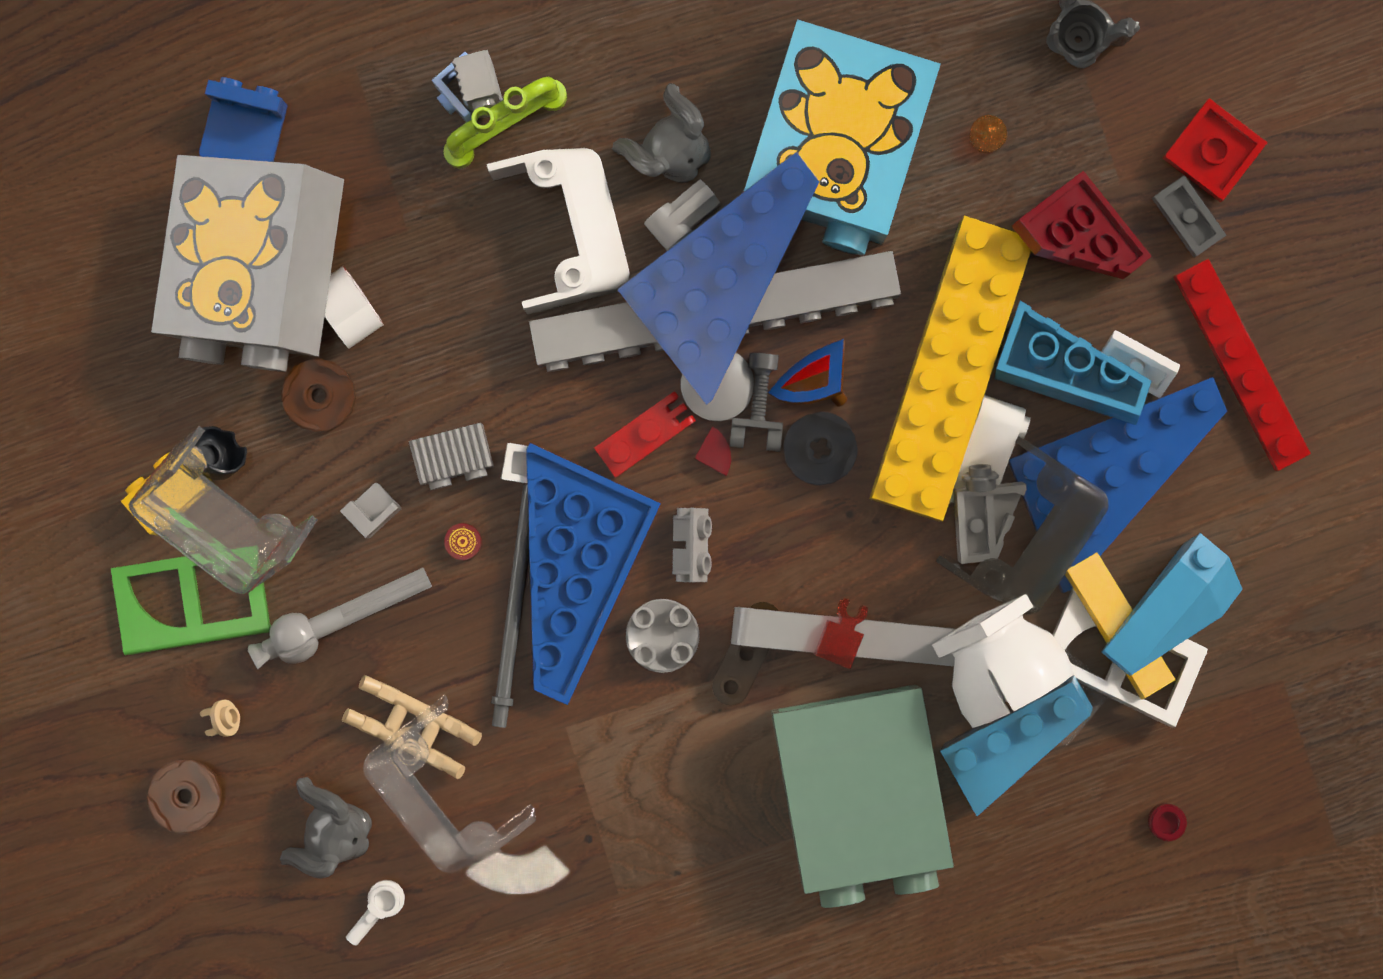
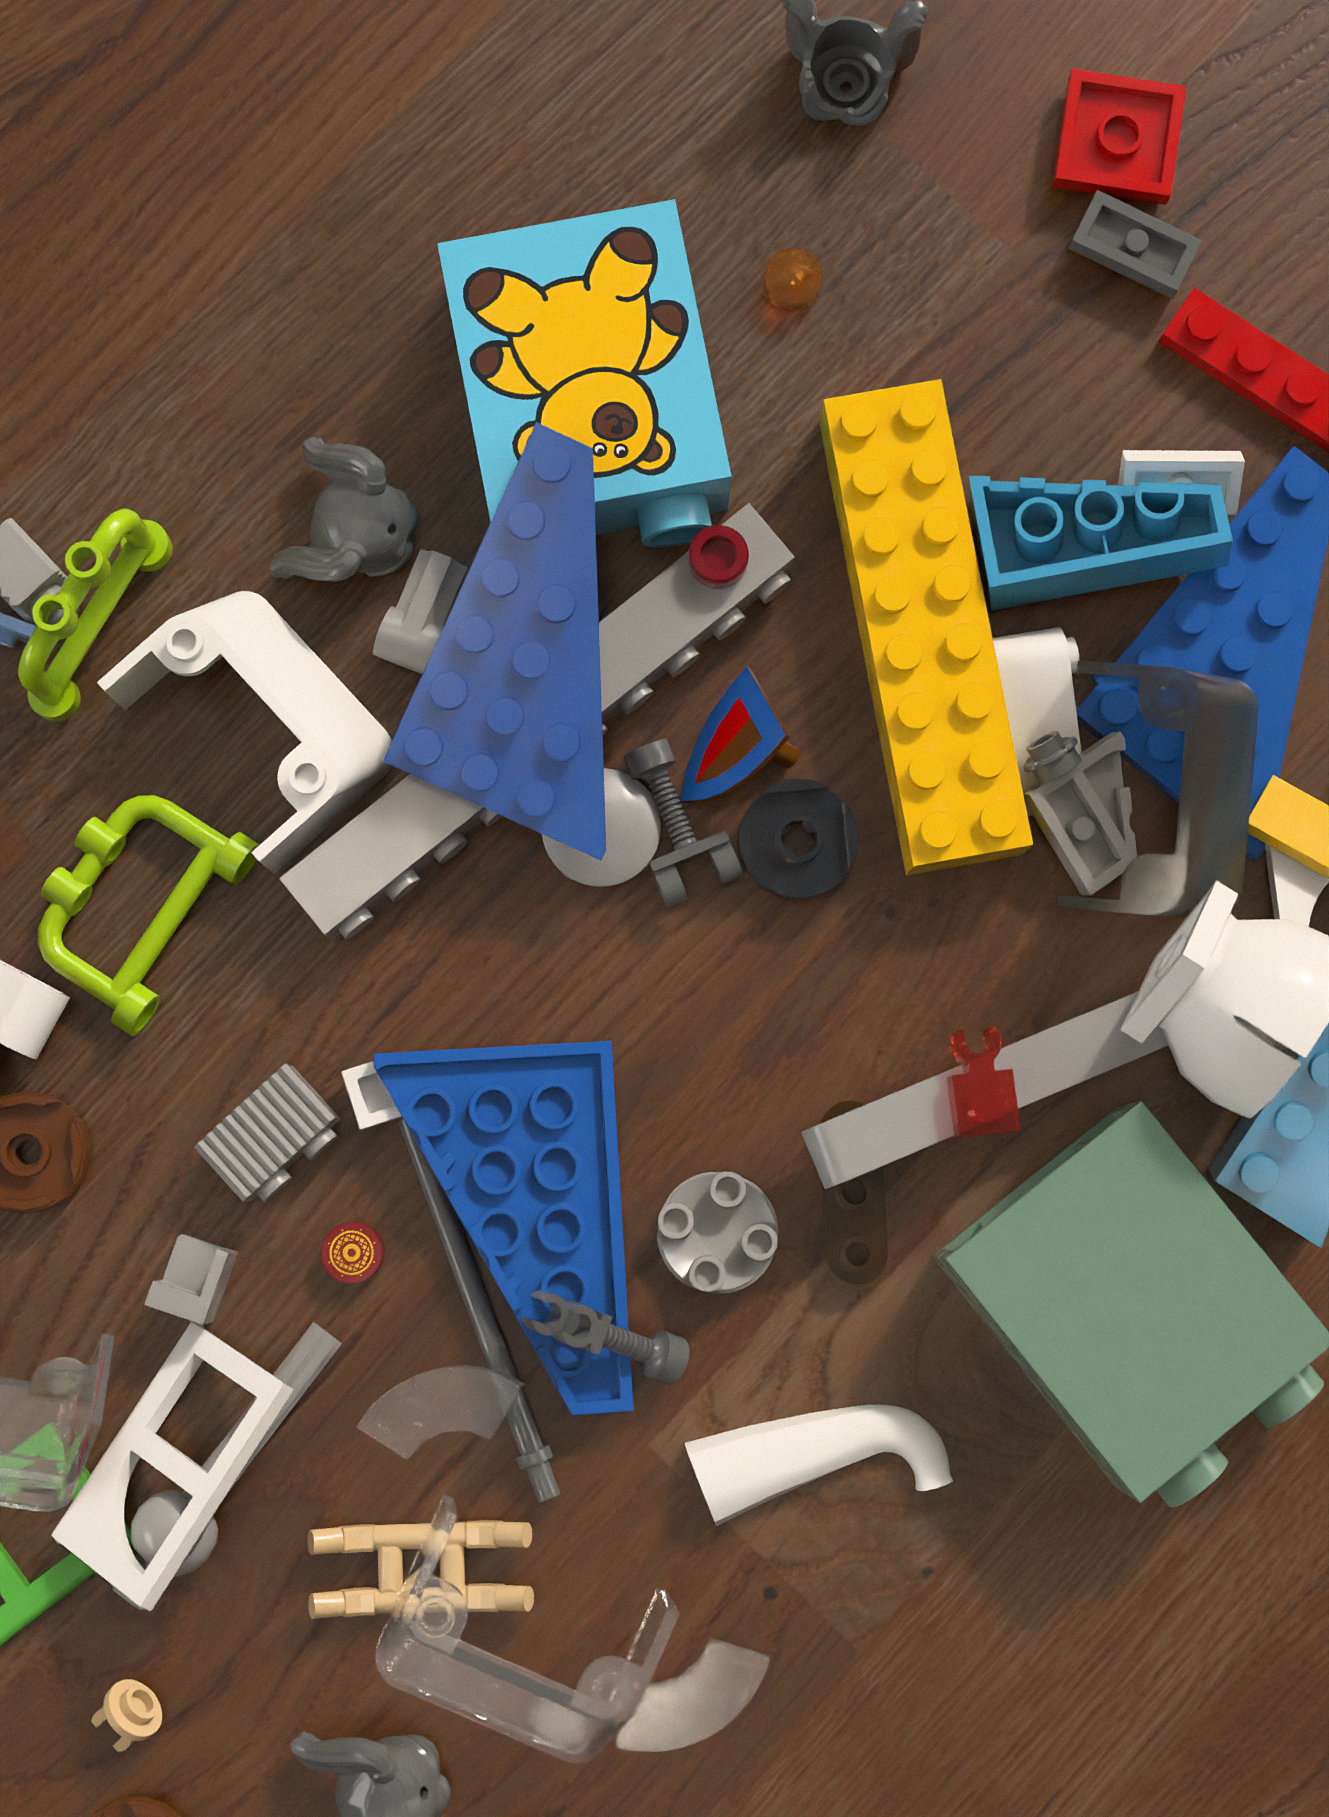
camera: 30 degrees left, 5 degrees down
(256, 608) = (95, 1520): none -> white window
(442, 249) = (70, 891): none -> lime bar
(467, 645) = (441, 1402): none -> clear tile
(597, 684) = (660, 1356): none -> dark grey bar
(629, 770) = (776, 1456): none -> white animal
(643, 435) = (533, 957): red hinge -> none
(695, 528) = (680, 1051): light grey hinge -> none
(715, 452) = (651, 926): dark red tile -> none
(858, 272) = (718, 557): none -> dark red tile
(1082, 231) = (1000, 337): dark red plate -> none

